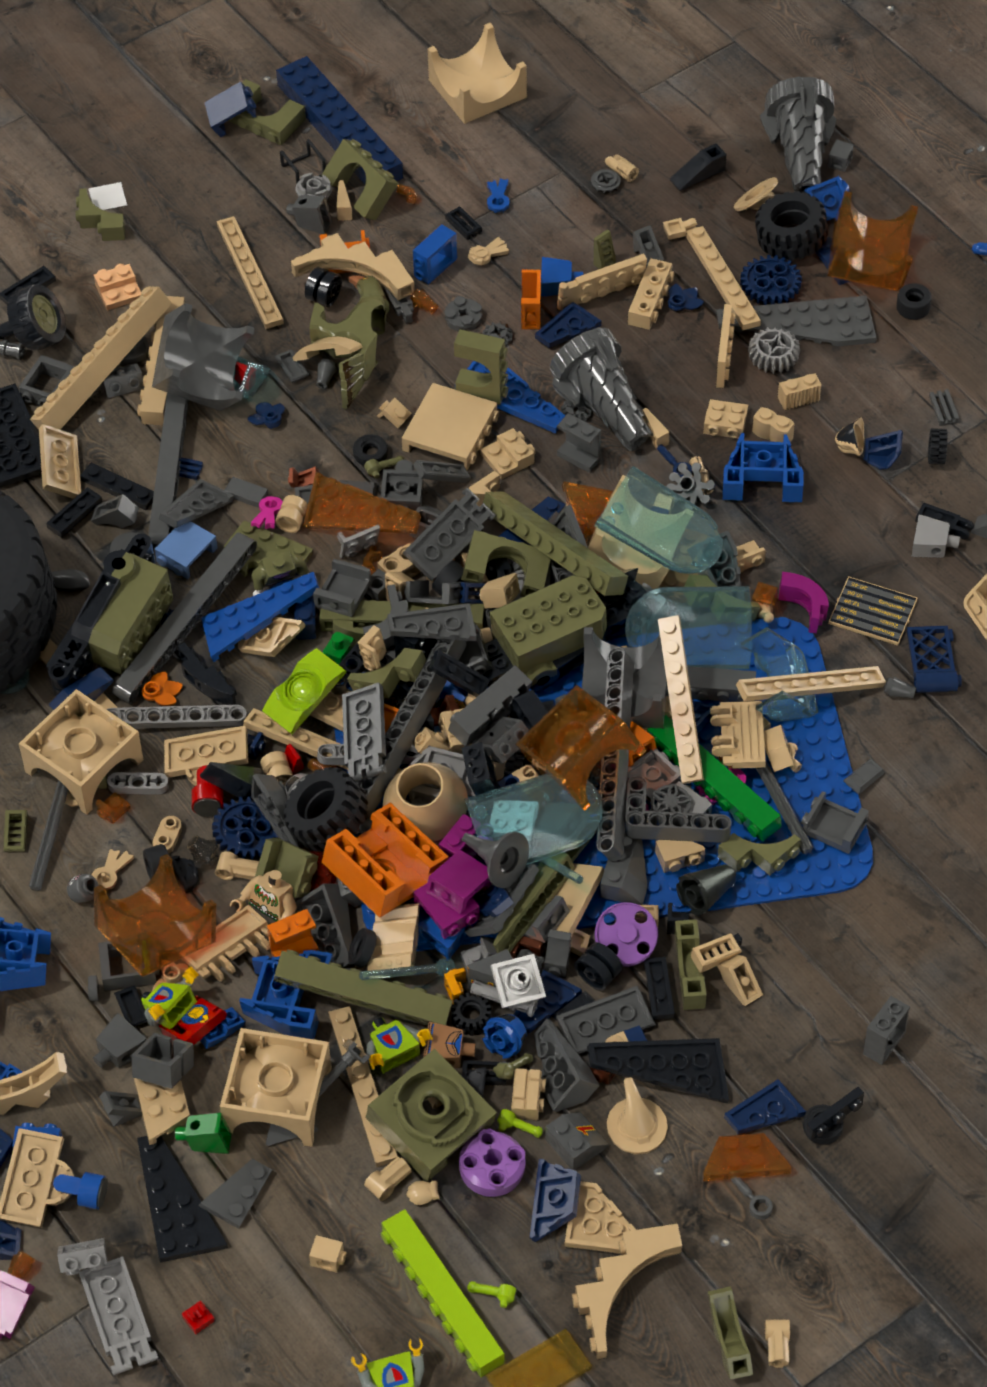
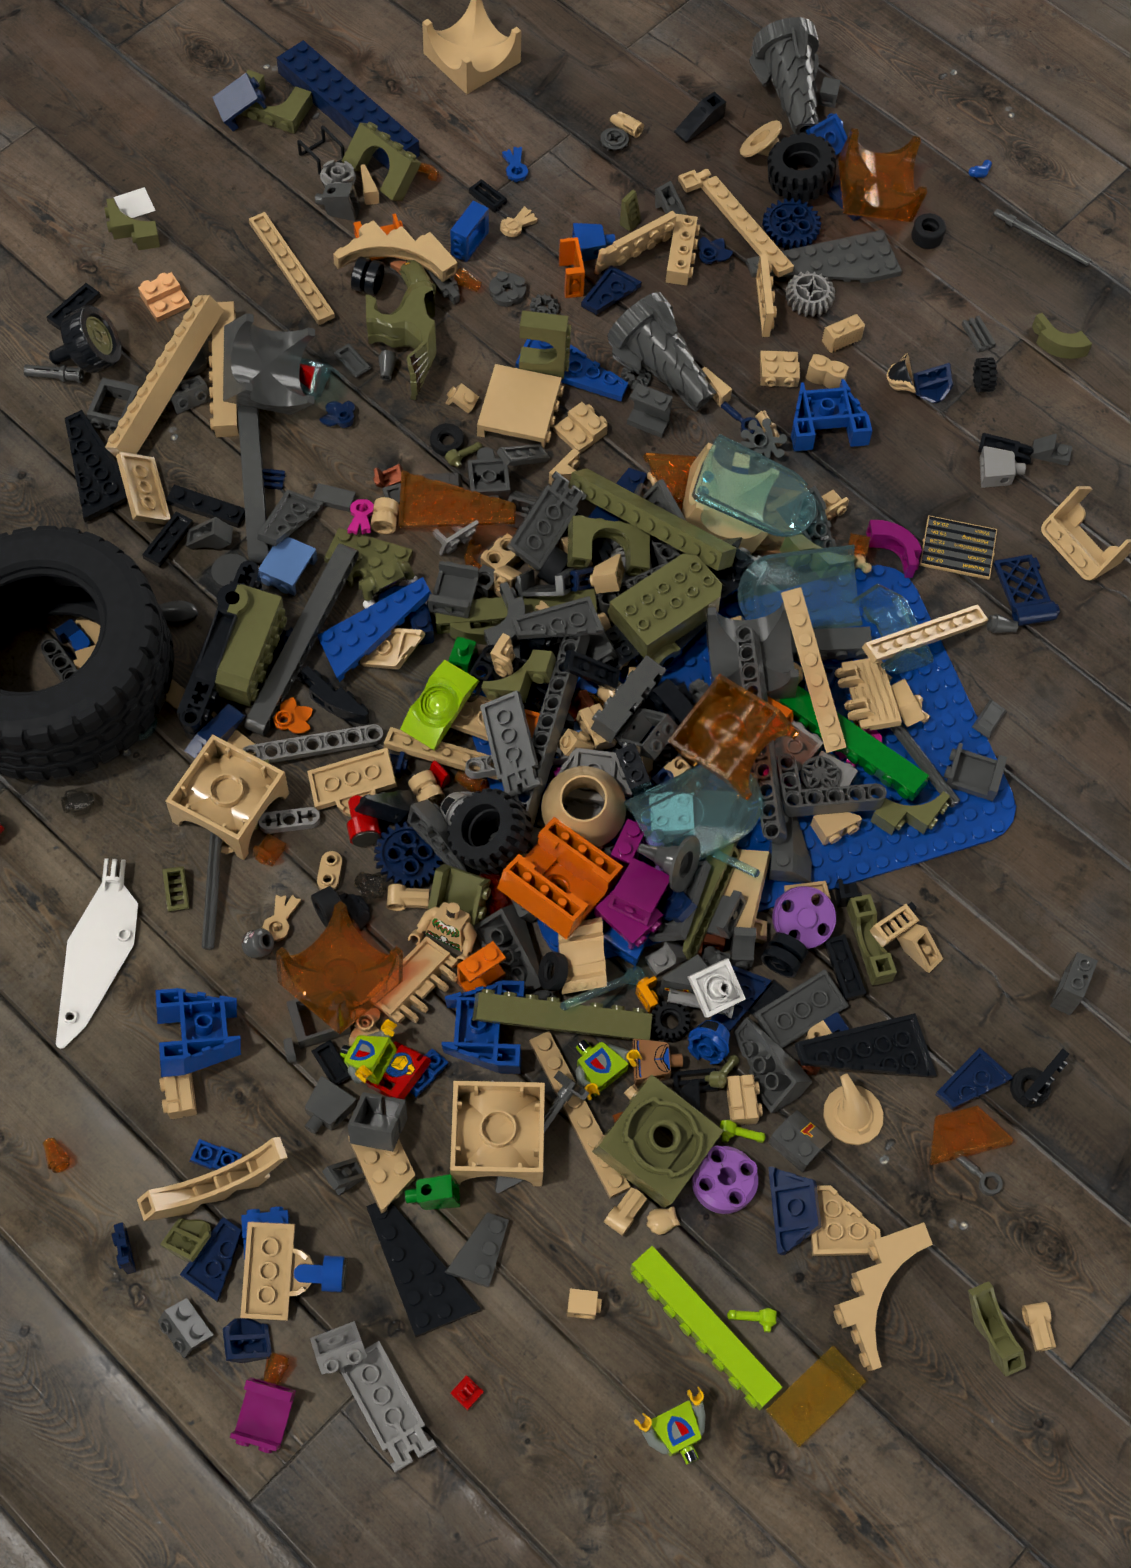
camera: 15 degrees left, 10 degrees up
(340, 344) = (403, 337): tan slope -> none
(704, 887) = (869, 858): pearl dark grey cone -> none

